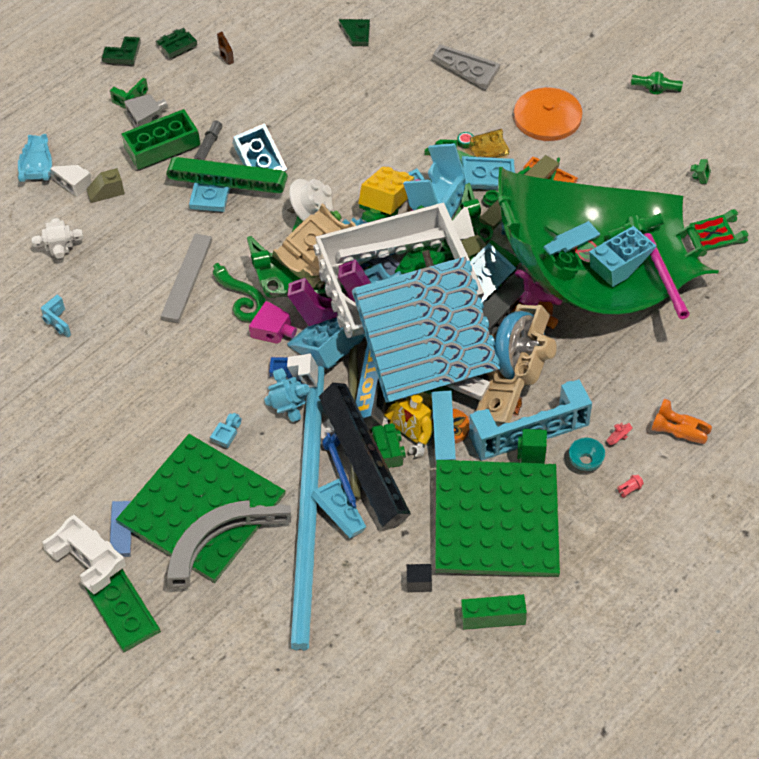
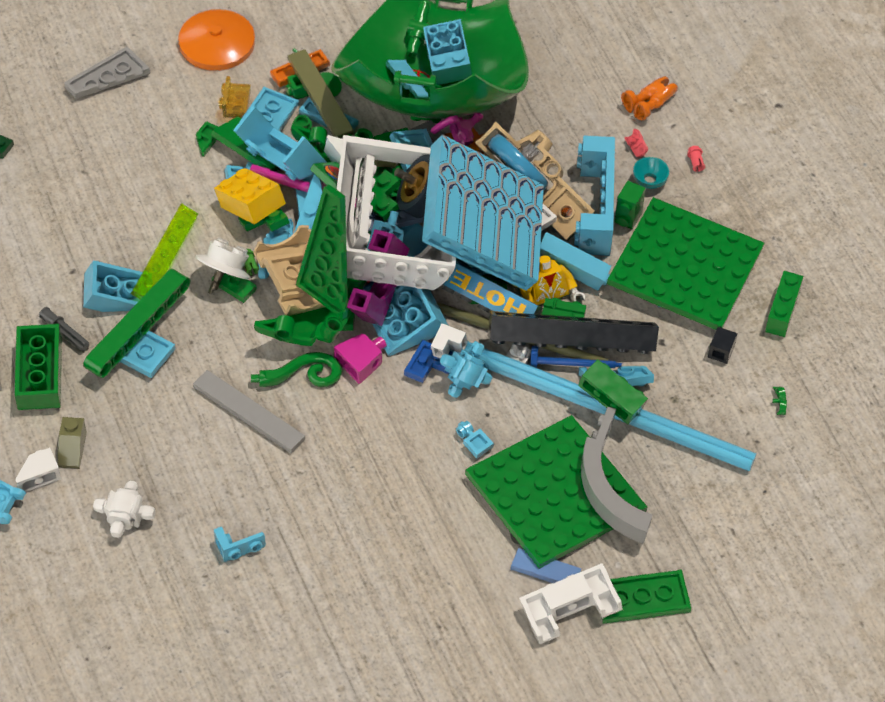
camera: 70 degrees left, 0 degrees up
(307, 503) = (613, 391): none -> green brick
(309, 235) = (325, 258): none -> green wing
(315, 166) = (165, 250): none -> clear neon green tile
(379, 651) = (781, 394): none -> green piece
(463, 139) = (209, 114): tile -> none
(678, 304) = (546, 29): dark pink piece -> none

